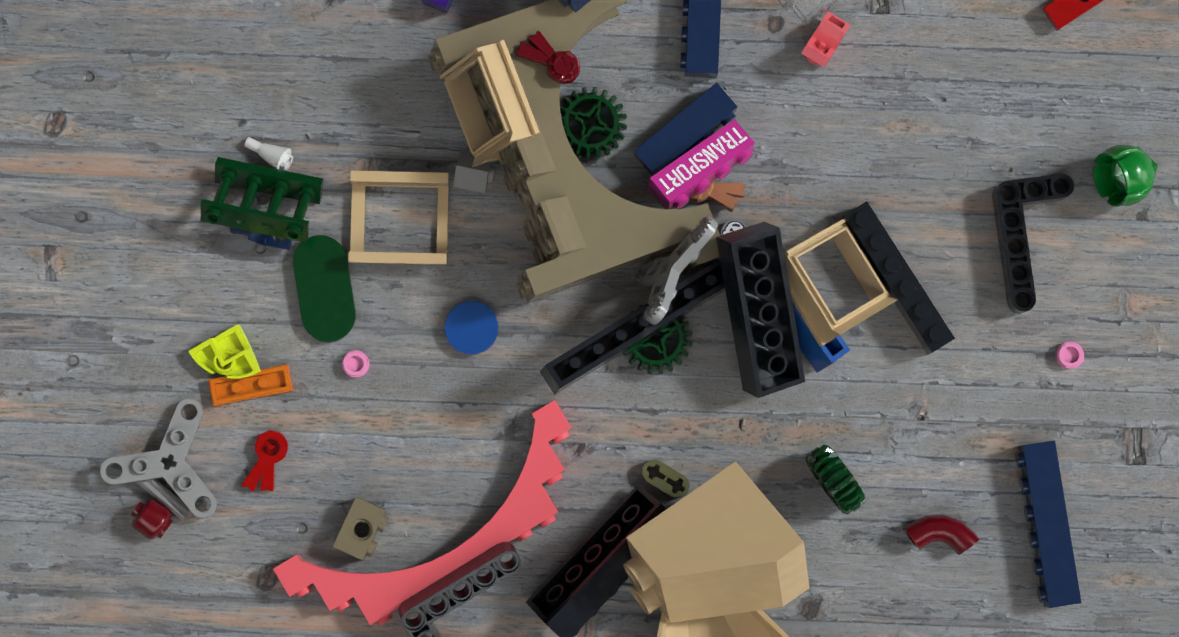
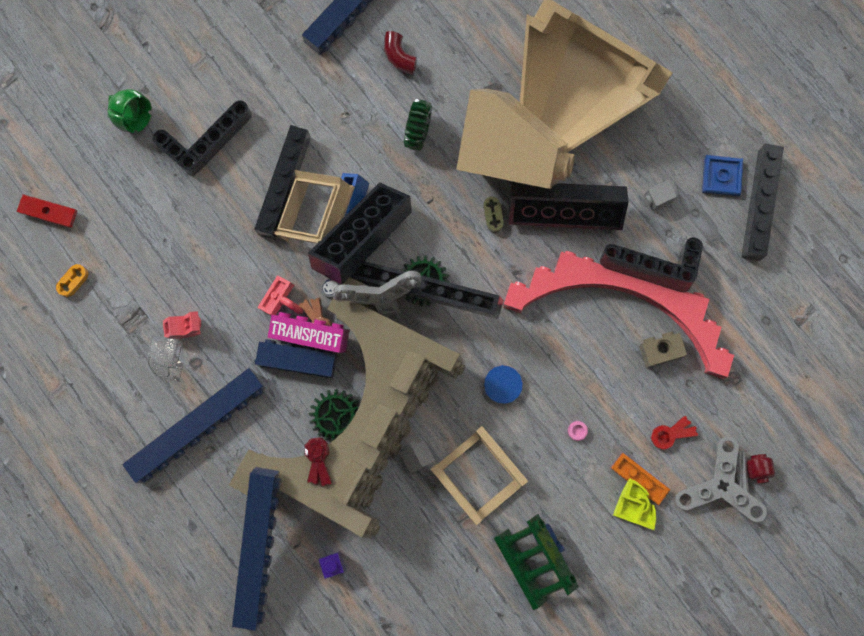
camera: 125 degrees left, 5 degrees down
(275, 156) = (503, 577): white cone -> none
(324, 288) = (552, 484): dark green tile -> none
(506, 95) = (359, 467): tan piece -> none
(772, 165) = (277, 296): none -> coral plate
(1069, 355) = (250, 67): bright pink tile -> none

